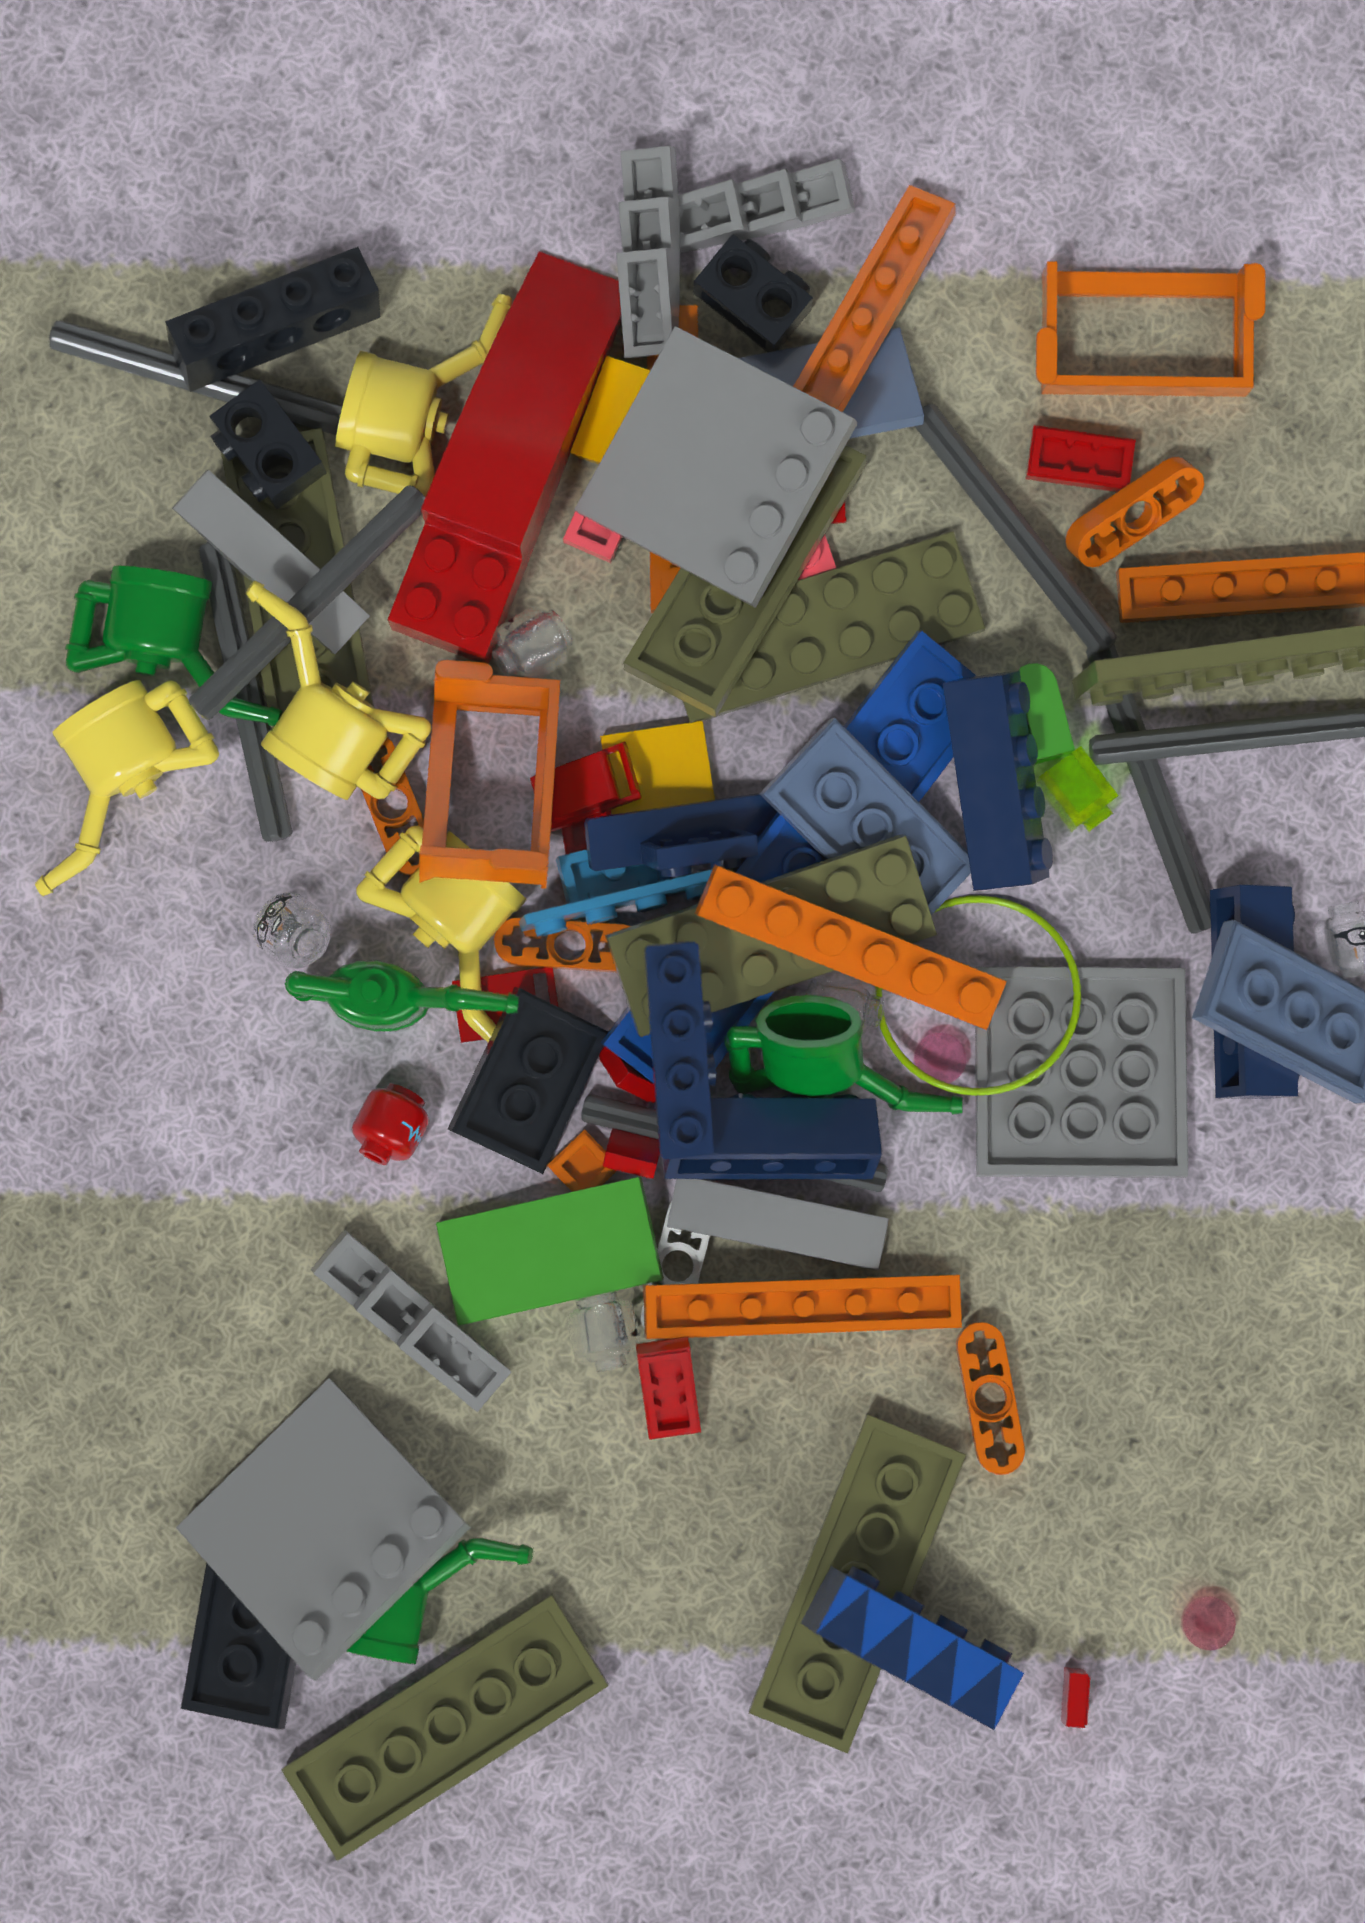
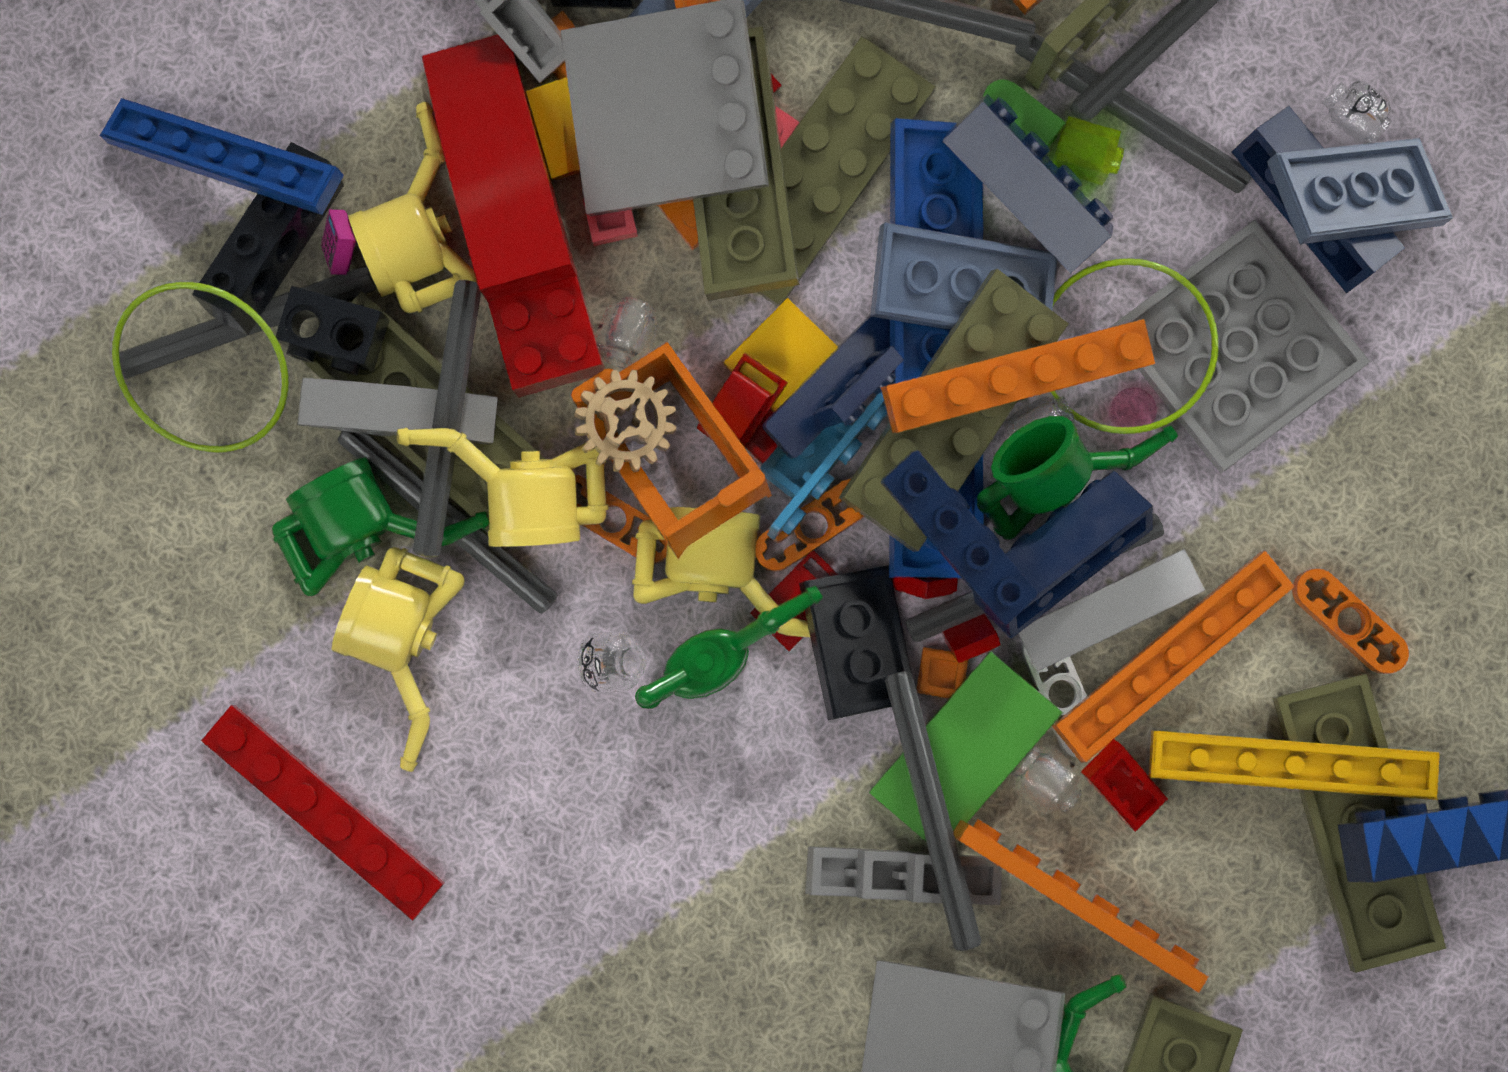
camera: 30 degrees left, 0 degrees up
(203, 372) = (219, 292): none -> lime piece
(286, 213) = (222, 156): none -> blue tile
(333, 368) = (338, 242): none -> dark pink tile
(390, 1124) = (784, 747): red head -> none
(456, 700) = (607, 407): none -> tan gear
(478, 1279) = (933, 811): none -> dark grey axle
(557, 1483) = (1097, 913): none -> orange plate
(835, 1485) = (1294, 765): none -> yellow tile

